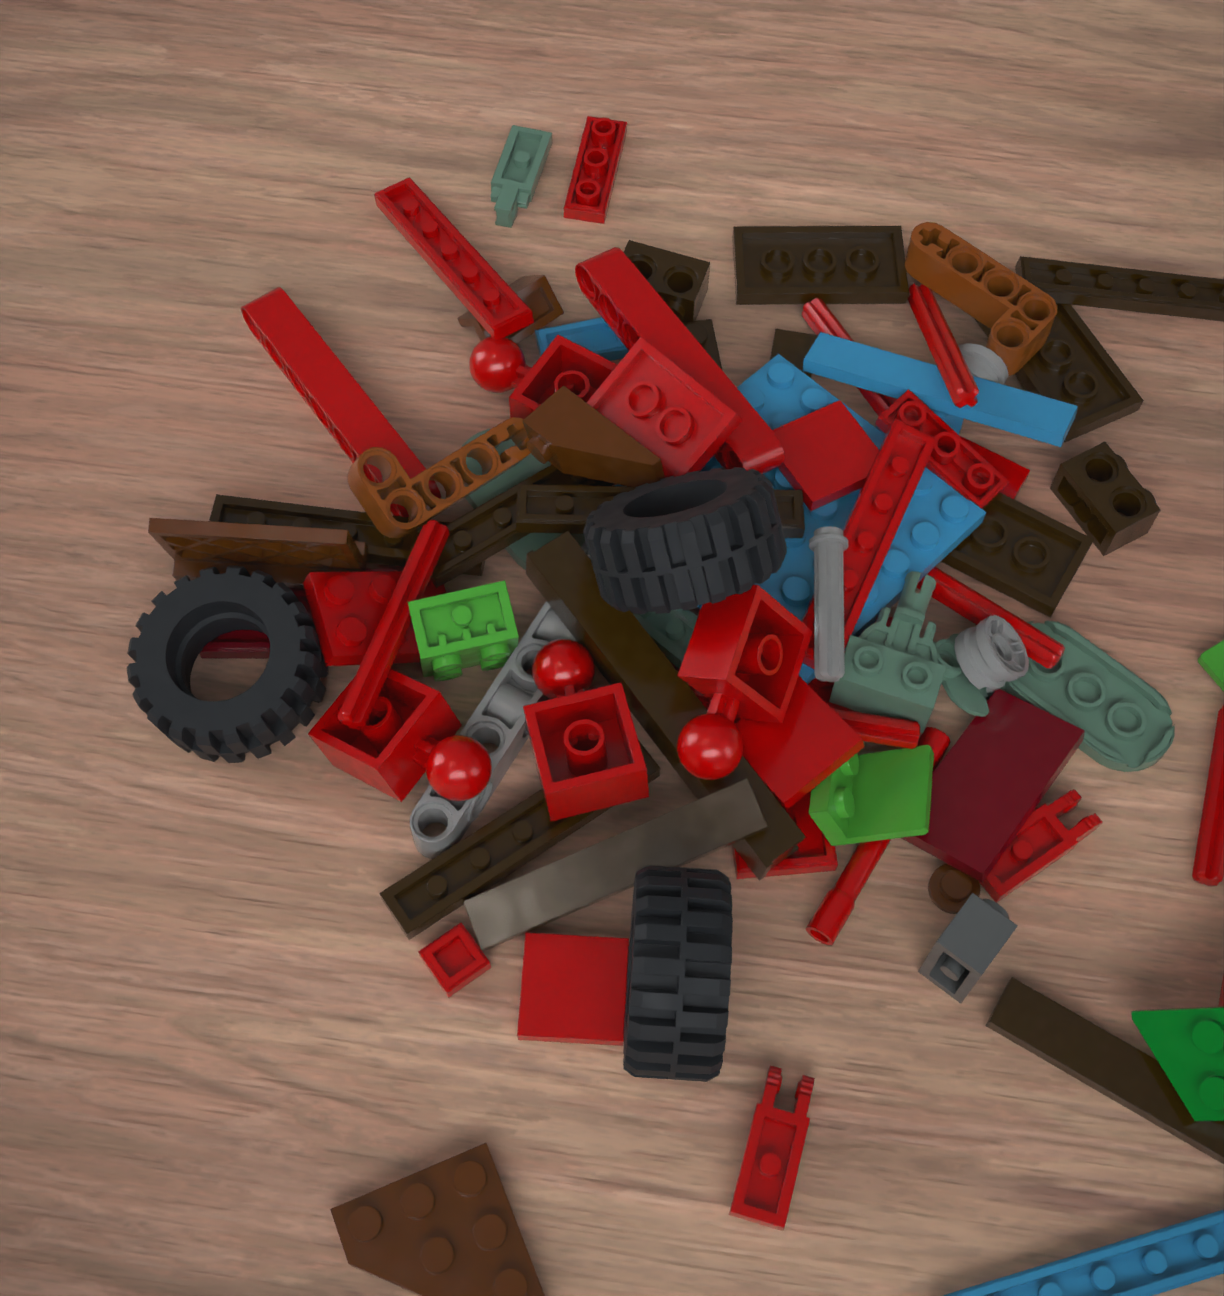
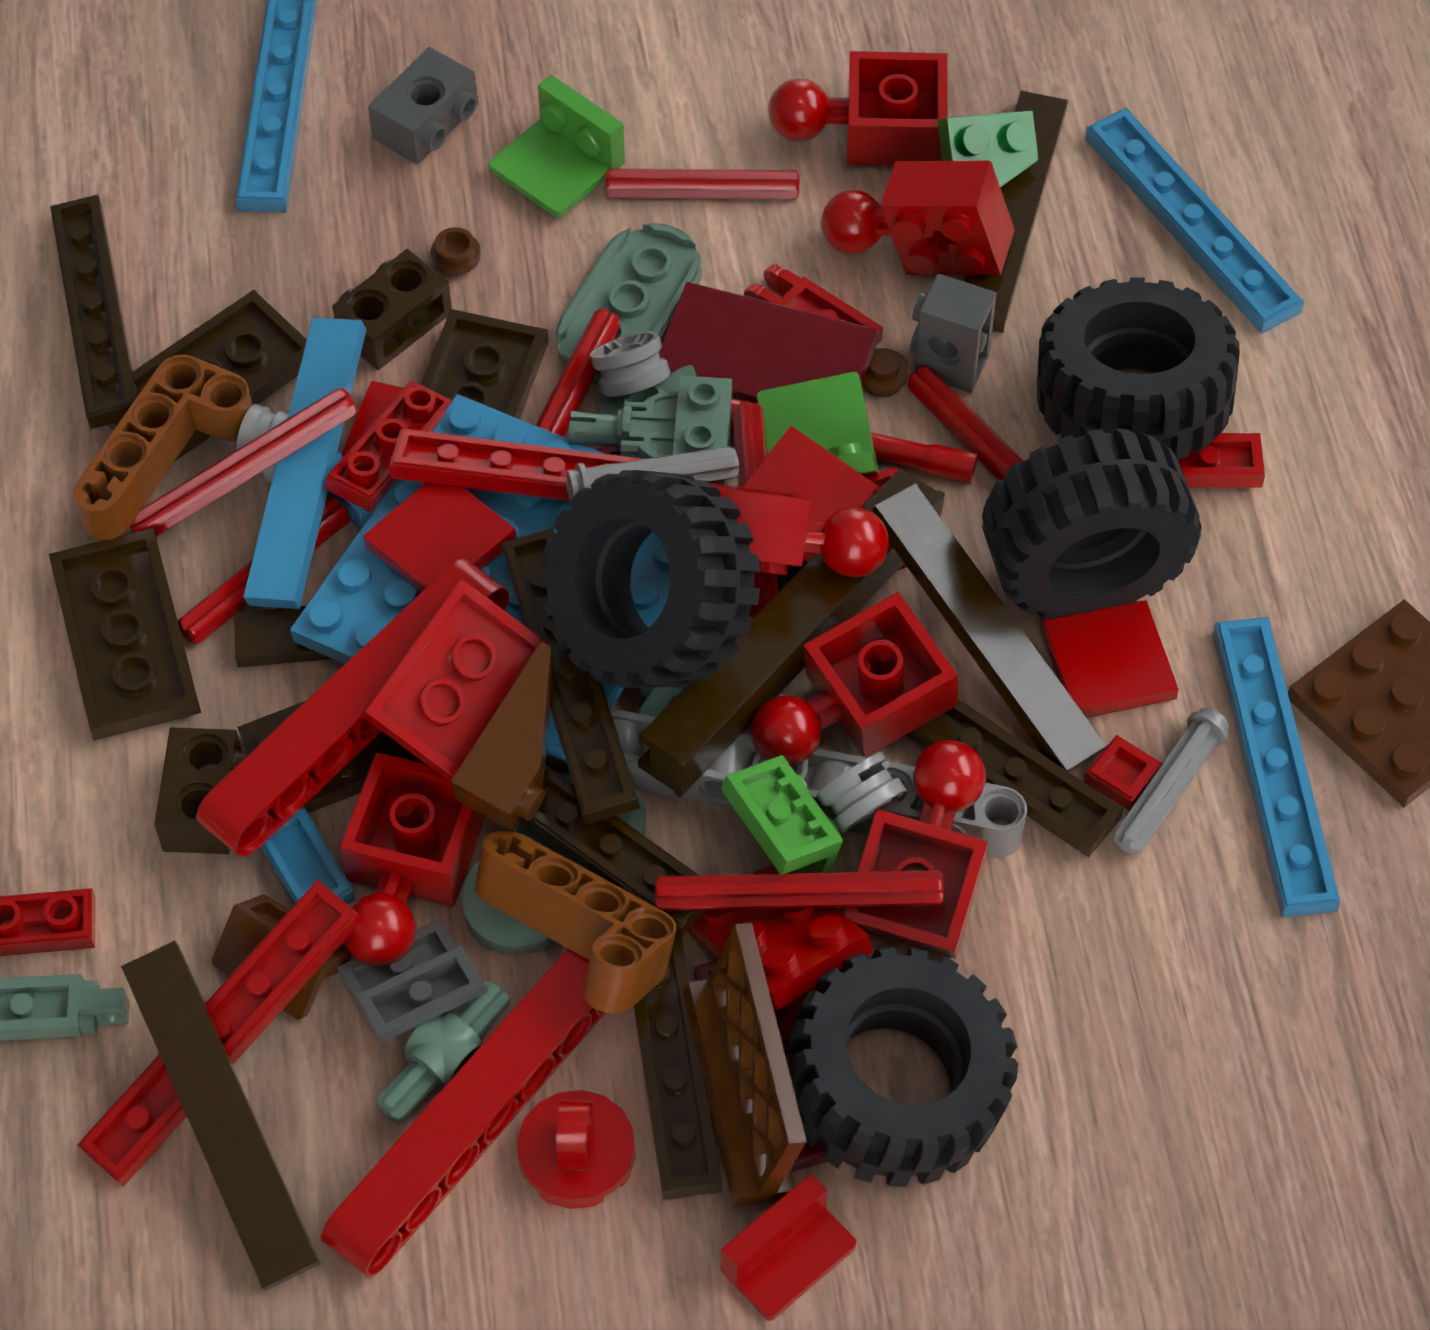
camera: 105 degrees left, 5 degrees down
(138, 568) = (786, 1249): none -> red panel
(283, 459) = (576, 1148): none -> red tile
(387, 240) = (220, 1116): none -> dark brown tile
(390, 389) = (440, 1050): none -> sand green axle
(417, 1101) = (1276, 768): none -> dark azure tile
(428, 996) = (1203, 733): none -> light grey axle
(441, 379) = (416, 988): none -> dark grey slope
(466, 692) = (860, 792): none -> light grey wheel
(850, 954) = (962, 421): none -> red axle
(939, 1095) = (1141, 329): none -> black tyre
(1118, 969) = (938, 214): none -> red brick
(1167, 565) = (455, 251): none -> reddish brown plate

